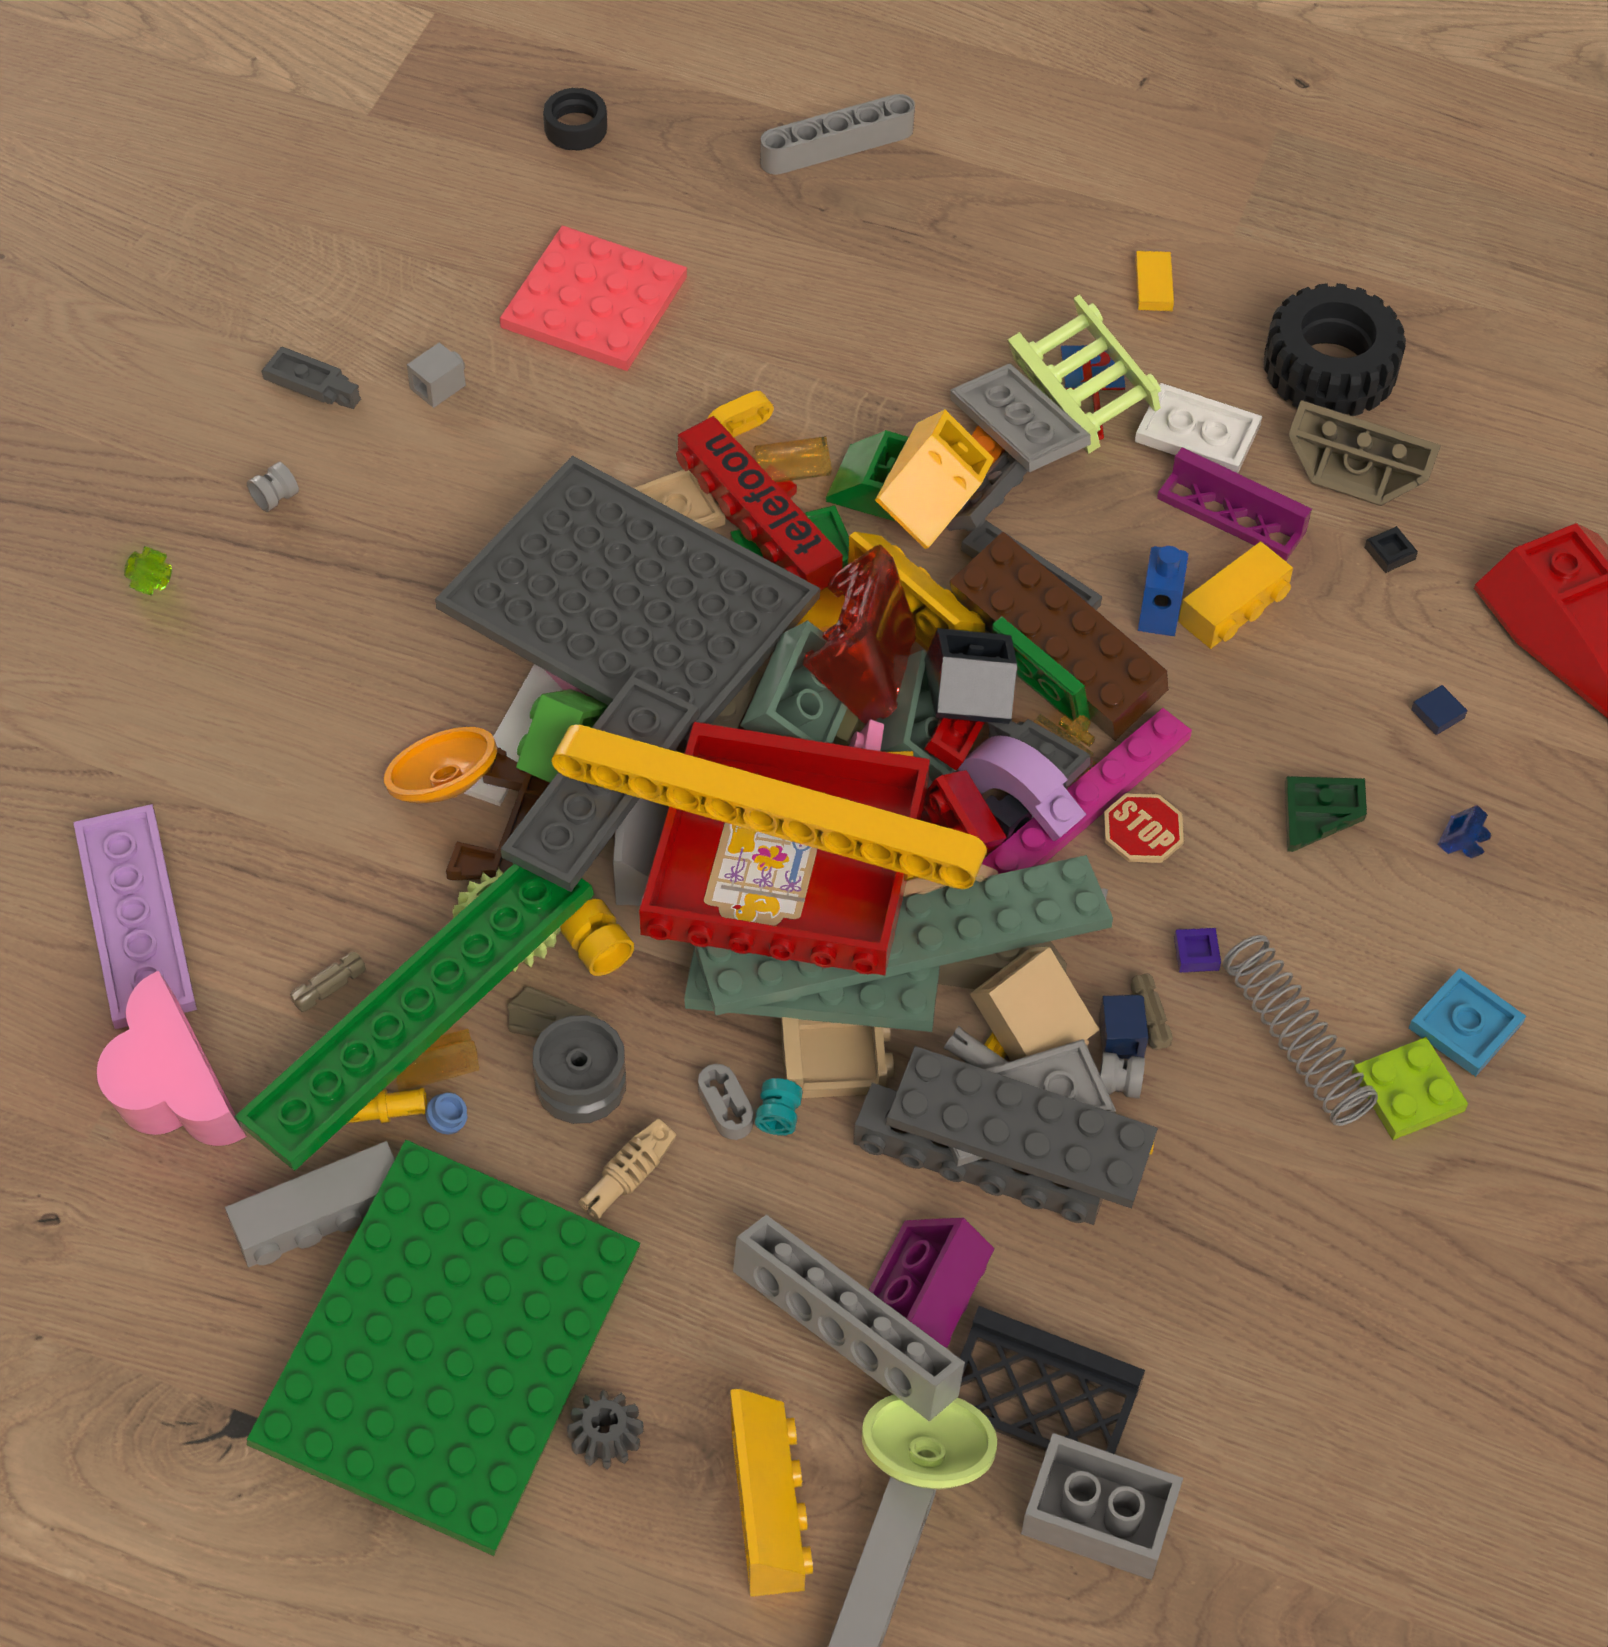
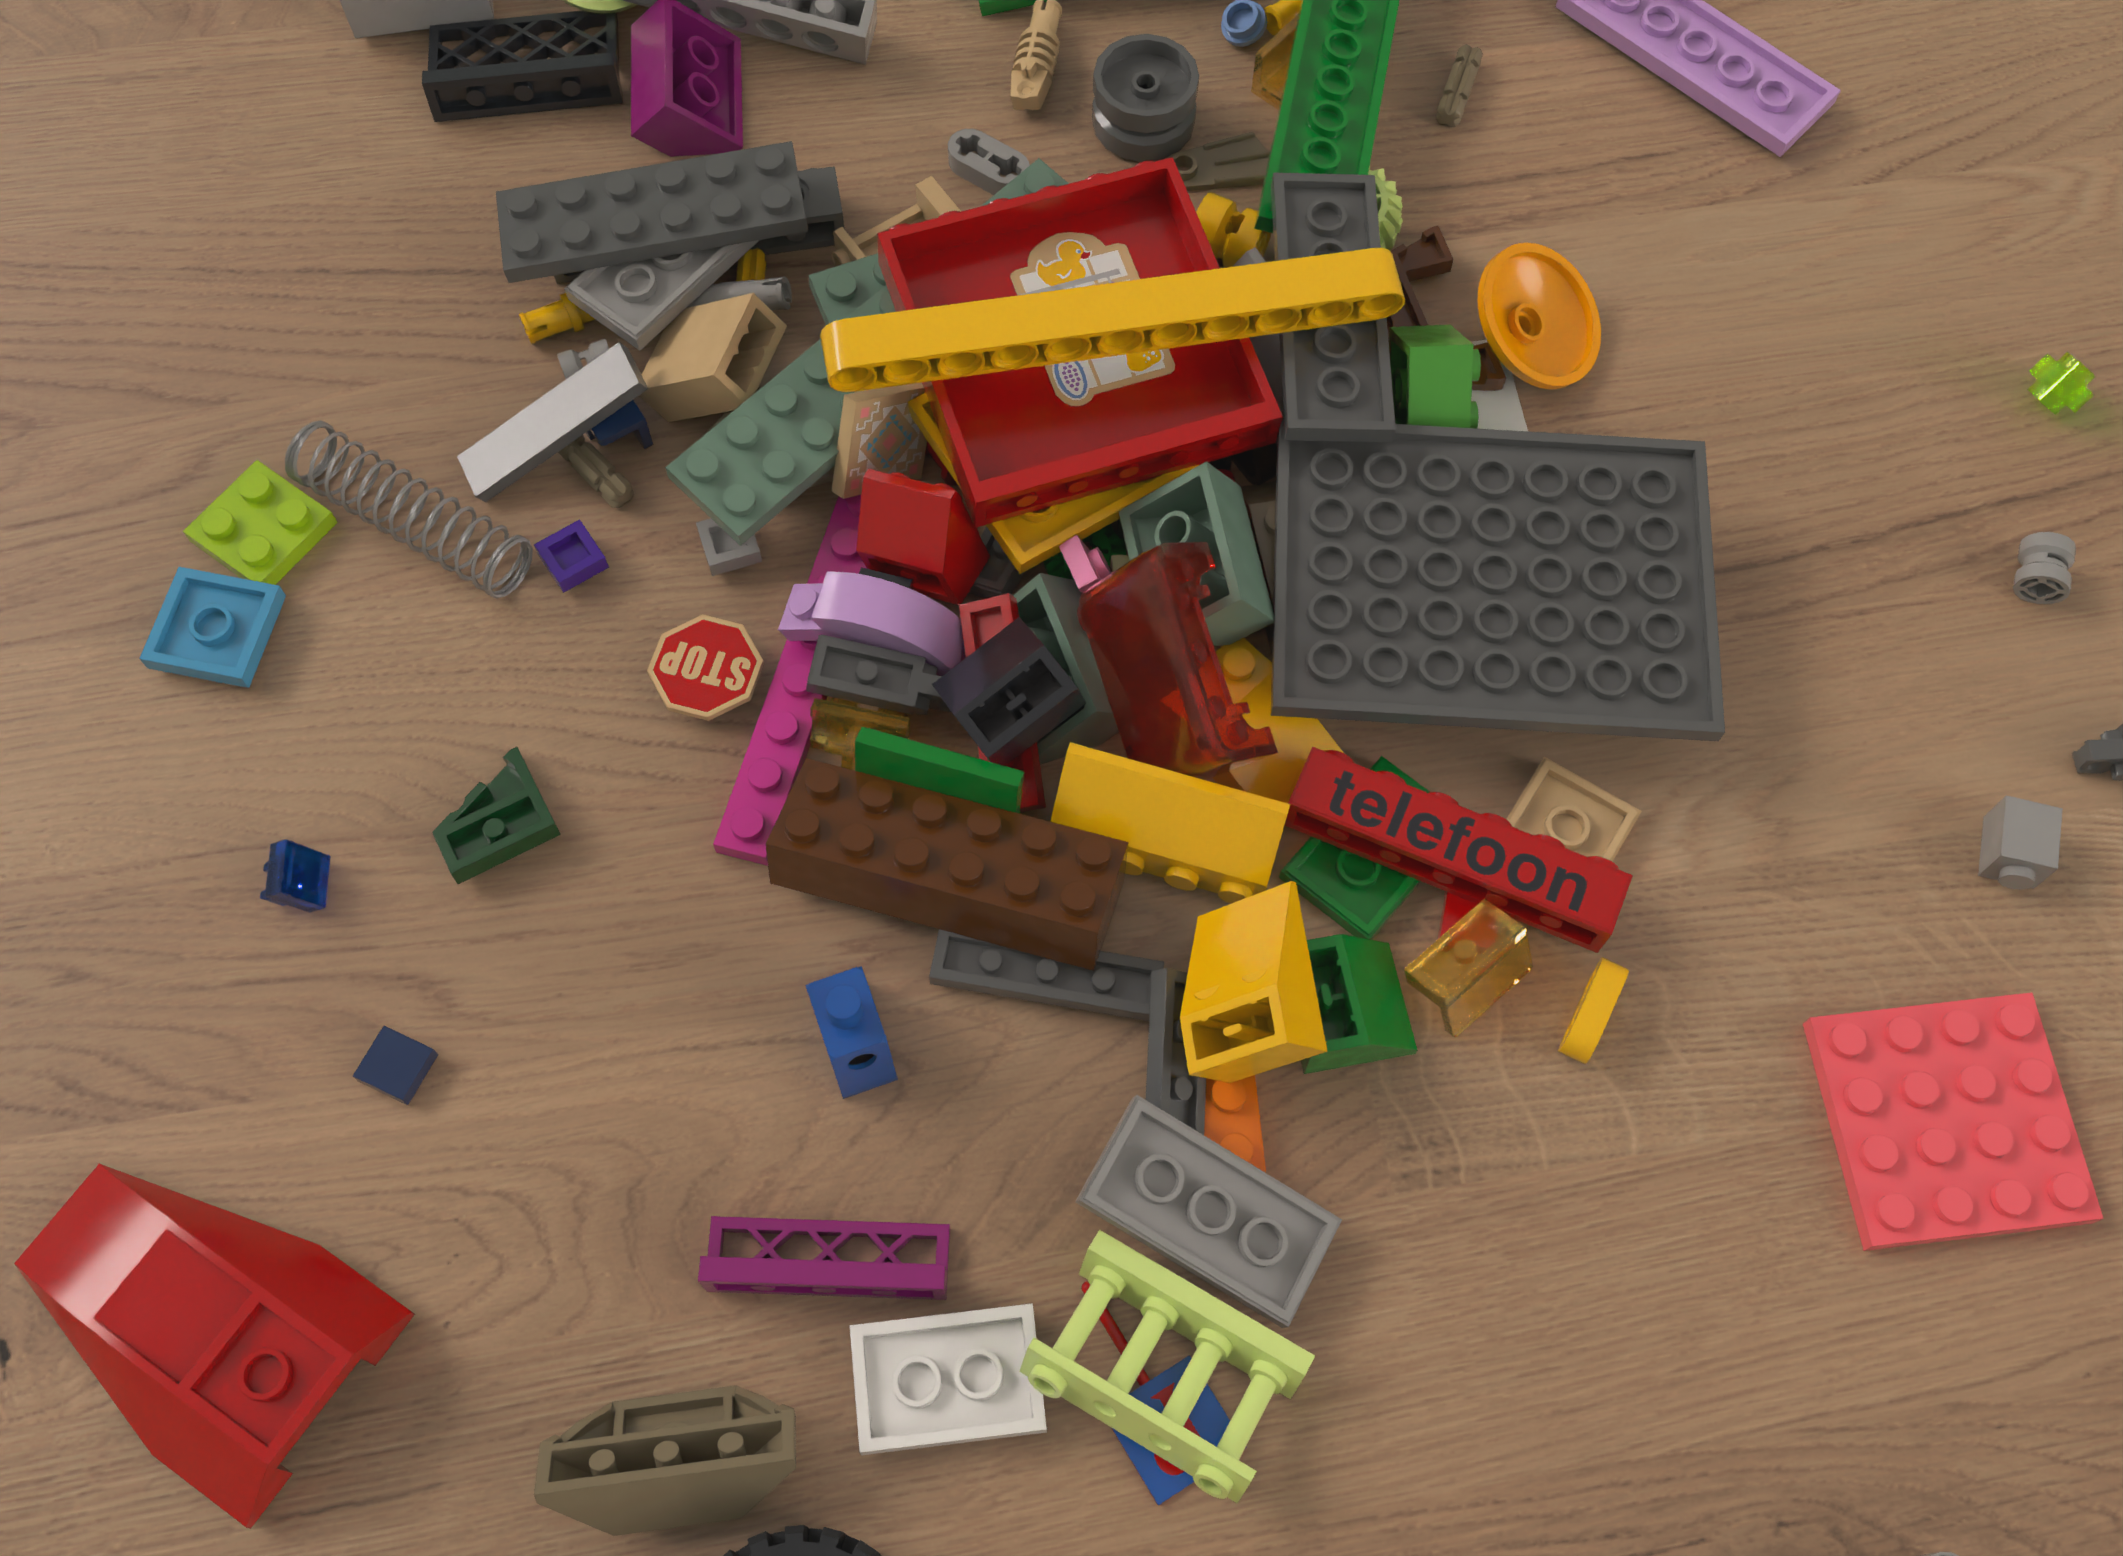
camera: 150 degrees right, 10 degrees up
(778, 1108) = (928, 158): teal wheel -> none
(1170, 1025) = (552, 422): none -> tile
(1236, 595) = (747, 1087): yellow brick -> none
(1391, 549) = (565, 1320): black tile -> none

